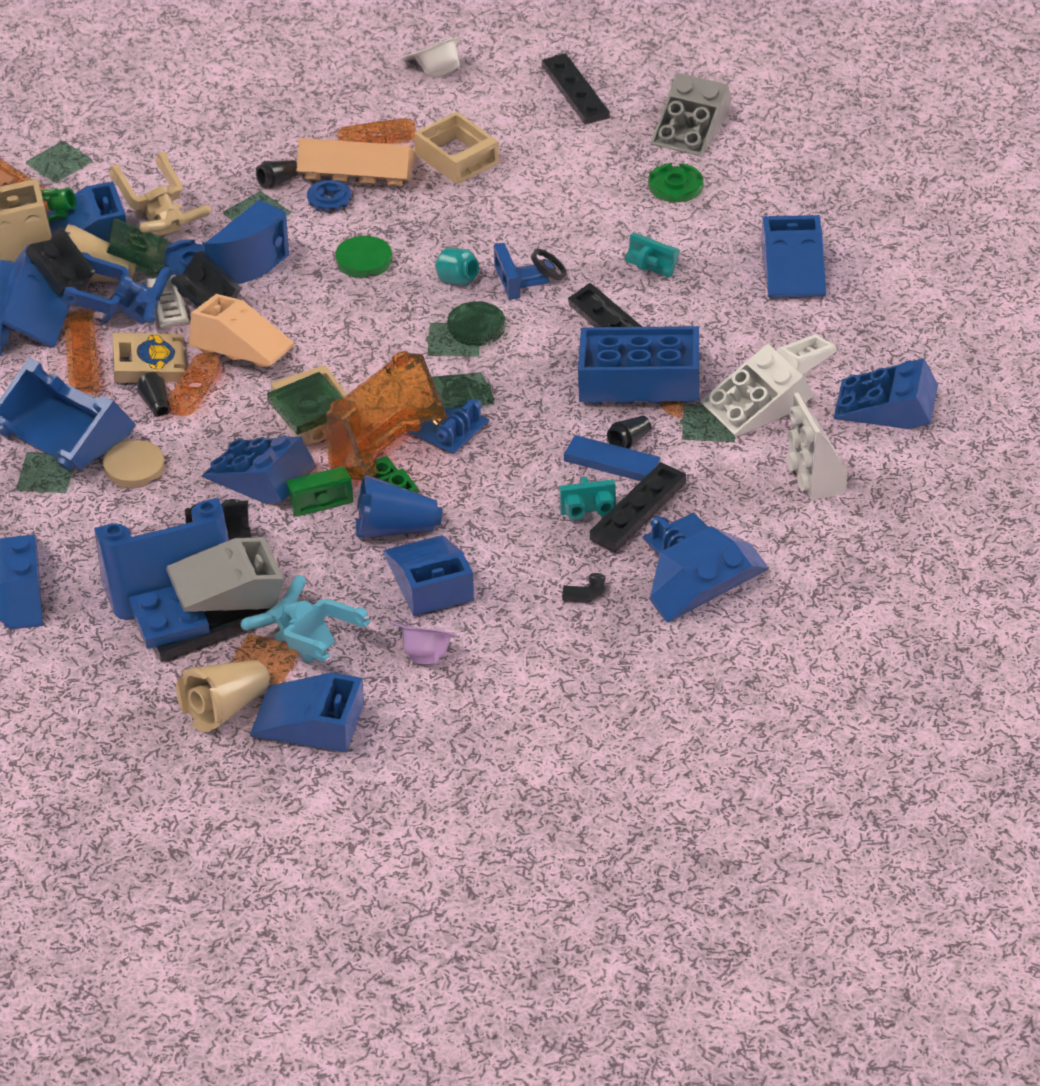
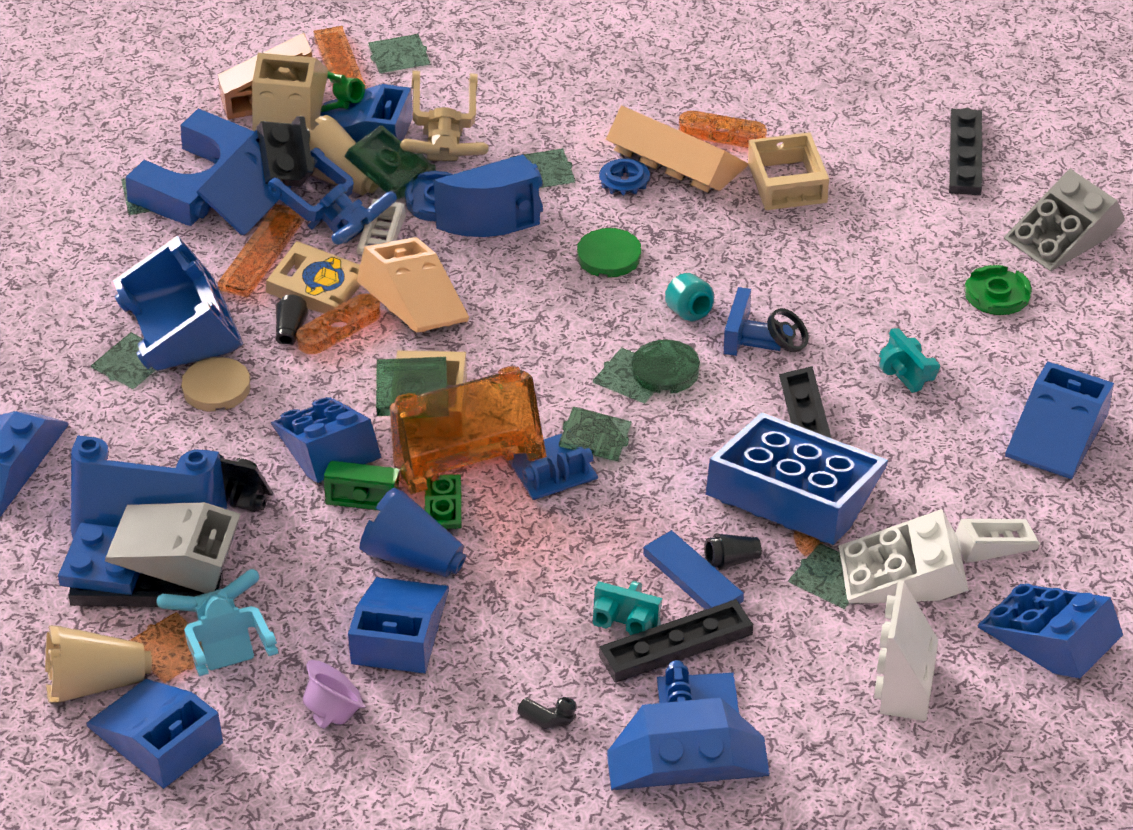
camera: 30 degrees right, 0 degrees up
(204, 279) = (421, 219): black bracket -> none
(275, 172) = (587, 134): black cone -> none
(437, 59) = (841, 71): white piece -> none

